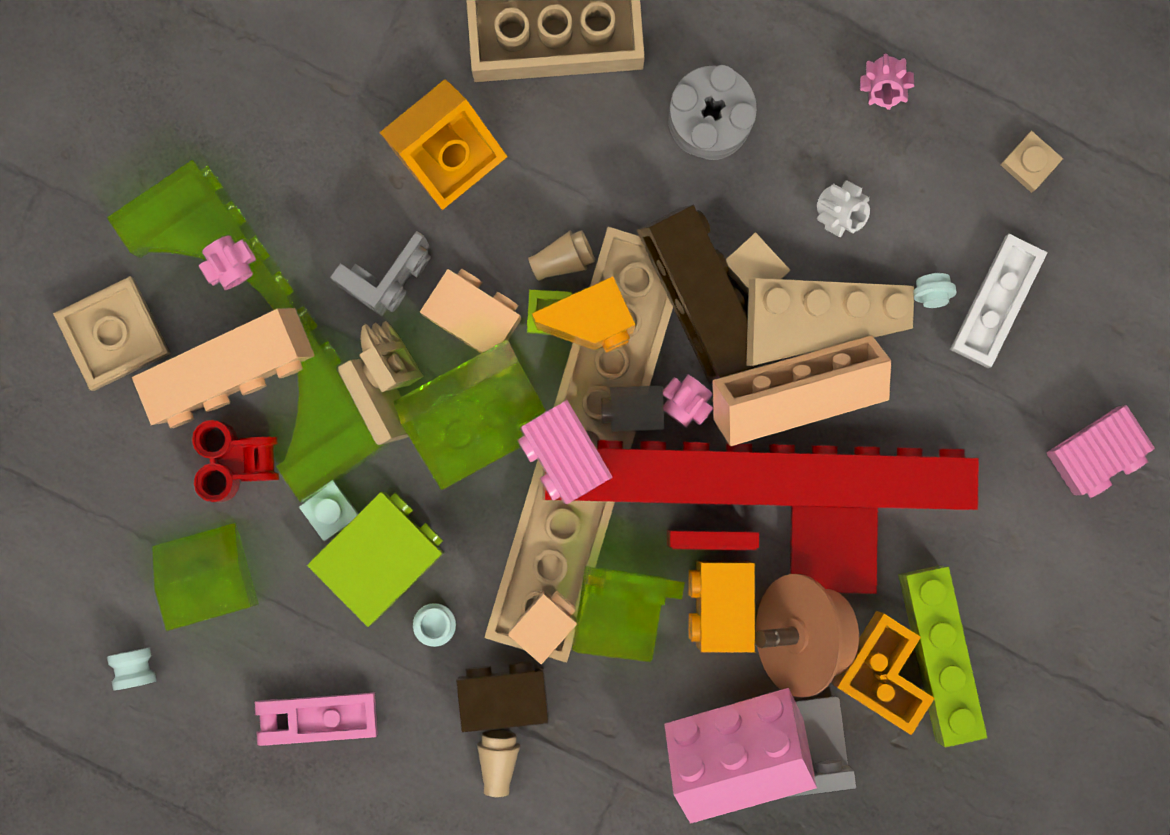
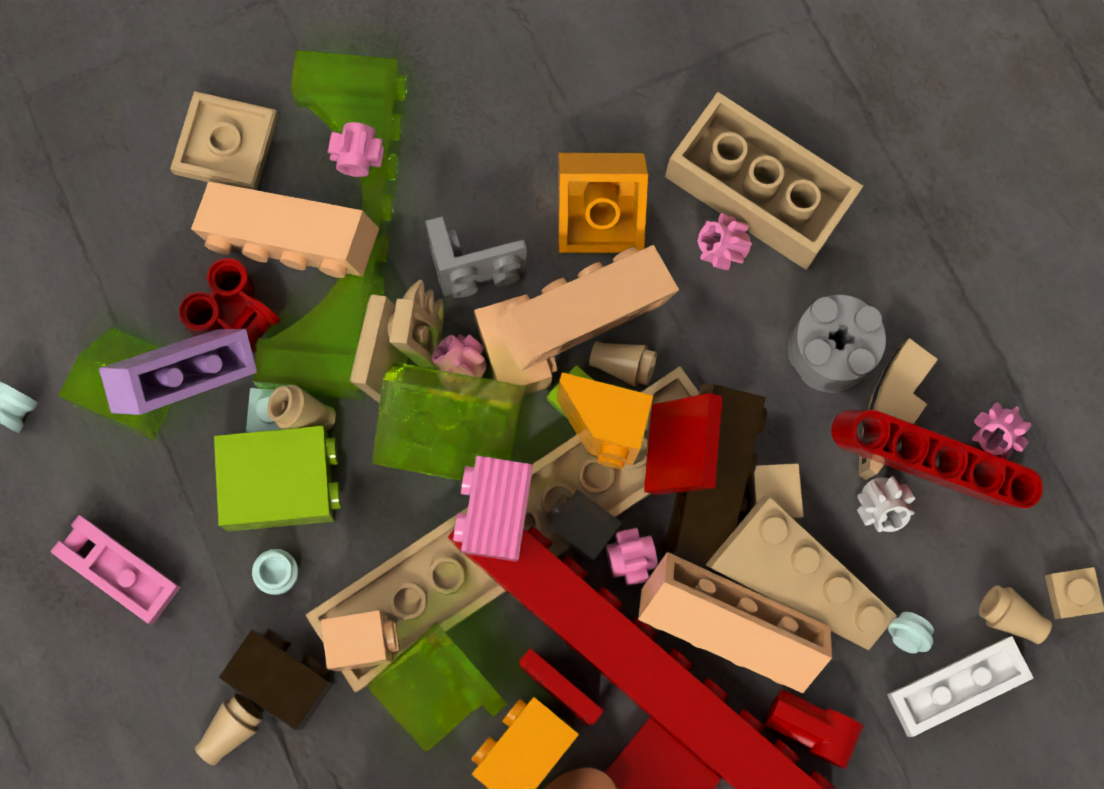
camera: 35 degrees right, 10 degrees down
(243, 541) = (177, 371): none -> lavender brick
(351, 494) = (296, 408): none -> tan cone
(437, 355) = (460, 356): none -> bright pink gear
(502, 240) = (586, 306): none -> light nougat brick
(564, 100) = (724, 241): none -> bright pink gear
(661, 290) = (683, 444): none -> red tile
(791, 127) = (895, 392): none -> tan slope
(838, 147) = (919, 456): none -> red beam
(924, 415) = (824, 732): none -> red piece
(998, 215) = (1012, 614): none -> tan cone

